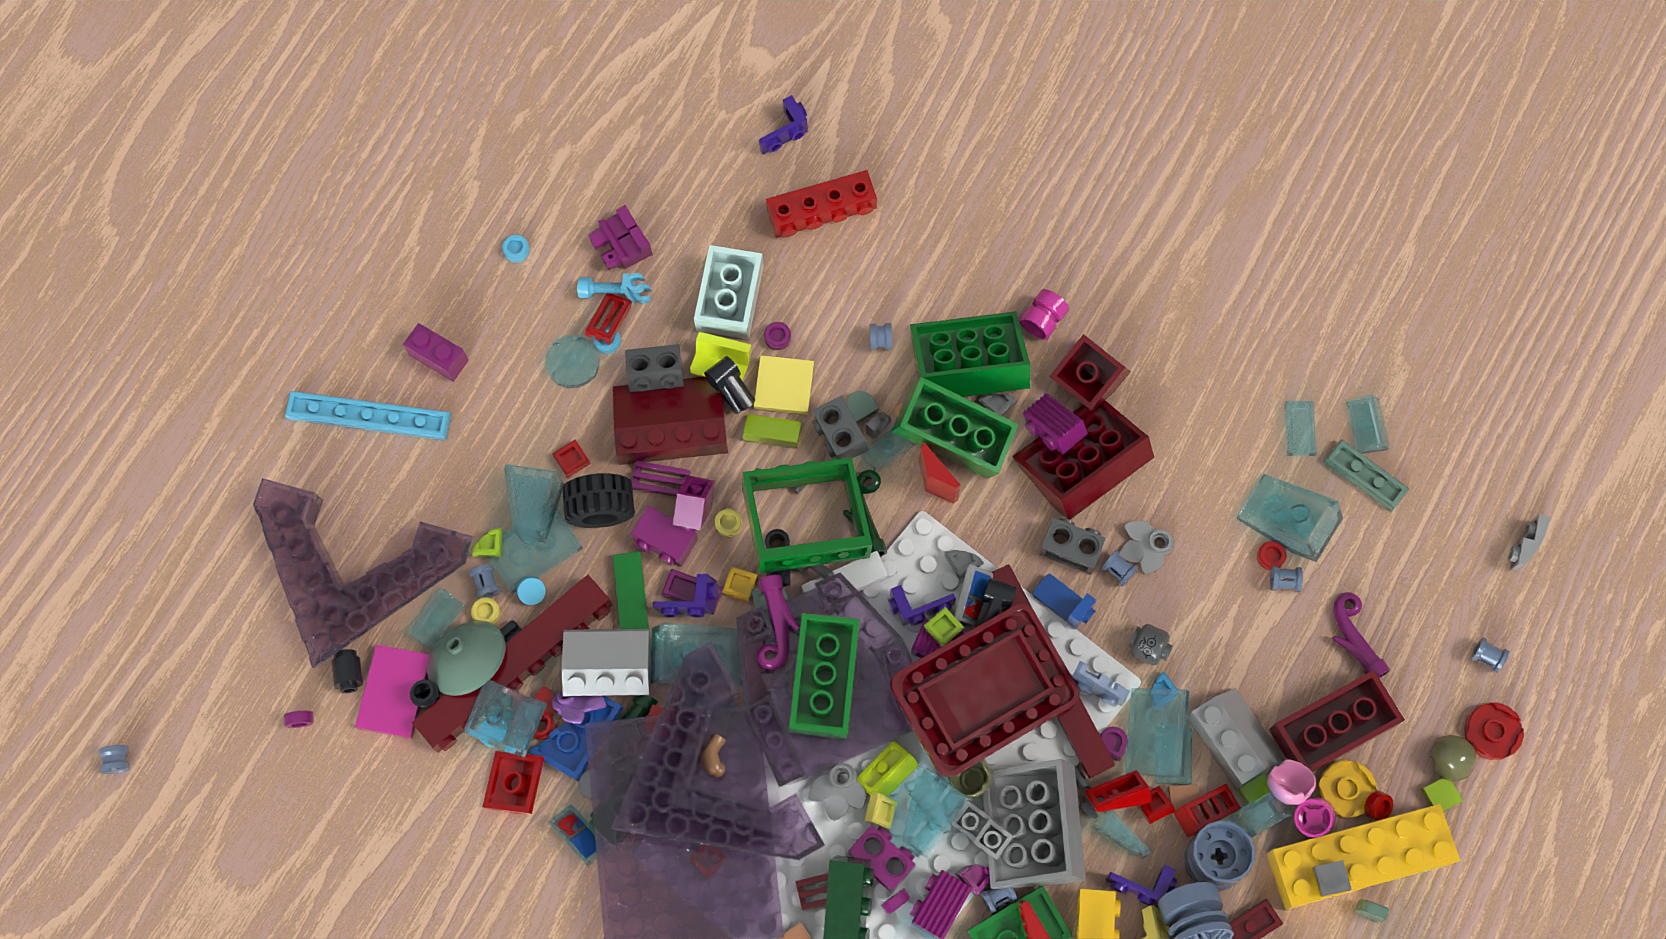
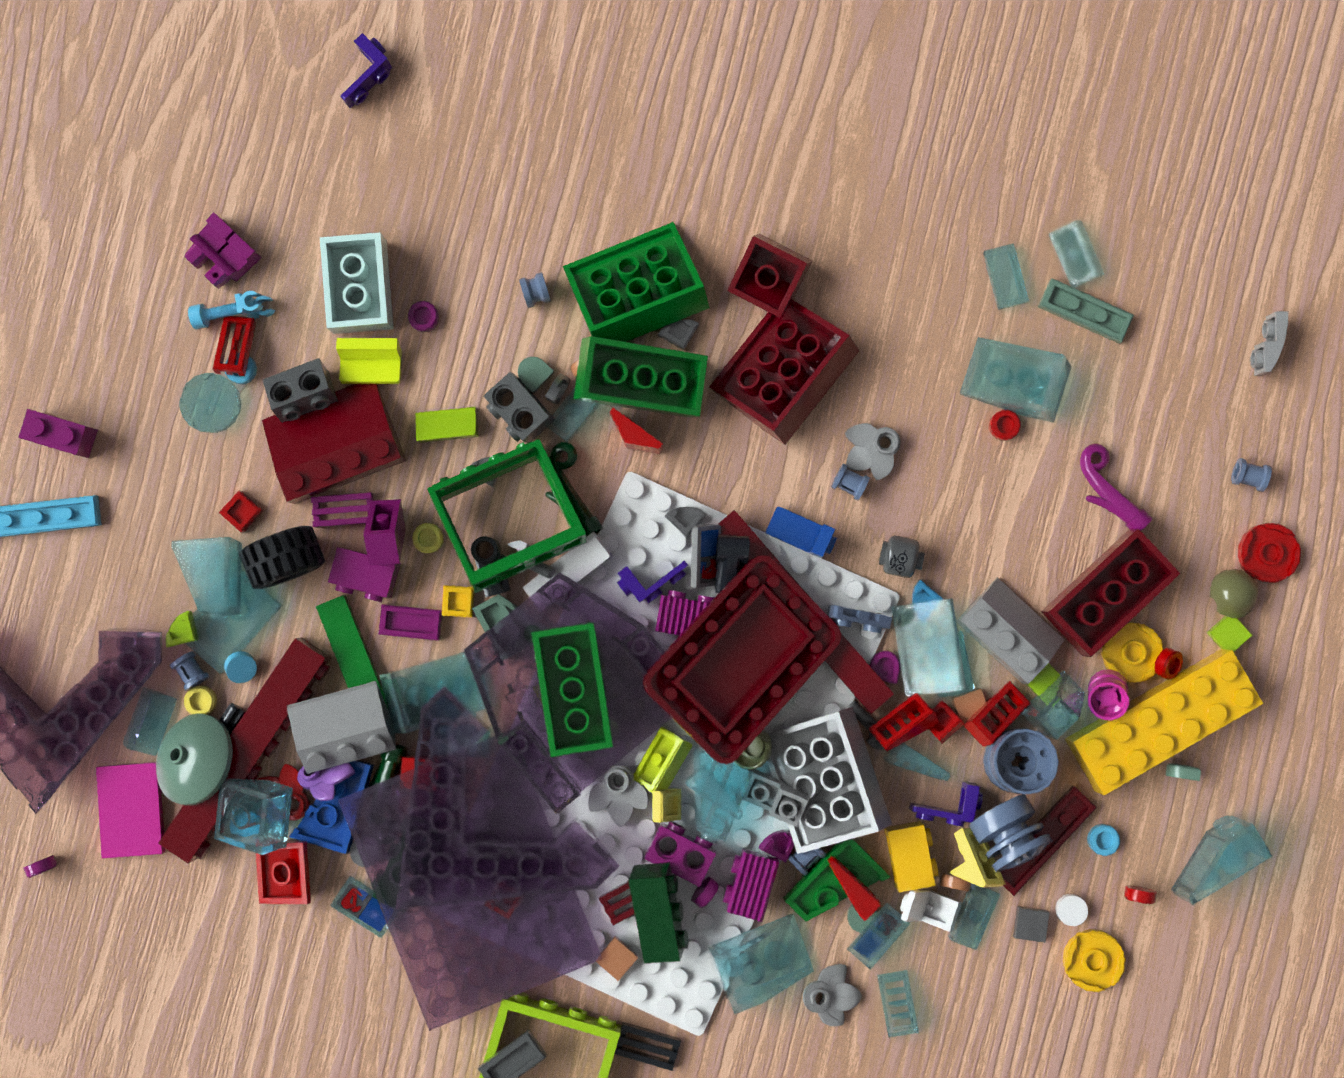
camera: 15 degrees left, 15 degrees up
(347, 671) = (74, 803): black brick -> none
(424, 693) = (162, 810): black cone -> none
(516, 248) = (110, 289): medium azure tile -> none
(706, 592) = (425, 629): dark purple bracket -> none
(710, 757) = (478, 803): medium nougat arm -> none
(726, 379) = (382, 386): black piece -> none
(780, 616) = (509, 635): magenta plant -> none
(784, 385) = (445, 370): light yellow tile -> none
(821, 204) = (430, 152): red brick -> none
(943, 627) = (683, 601): lime tile -> none
(1046, 312) = (706, 216): dark pink wheel -> none
(1054, 424) = (745, 342): magenta brick -> none
(1069, 552) = (795, 478): dark grey brick -> none
(1291, 782) = (1079, 671): bright pink hair -> none
(1295, 582) = (1025, 448): sand blue bush -> none
(1331, 878) = (1139, 759): flat silver tile -> none

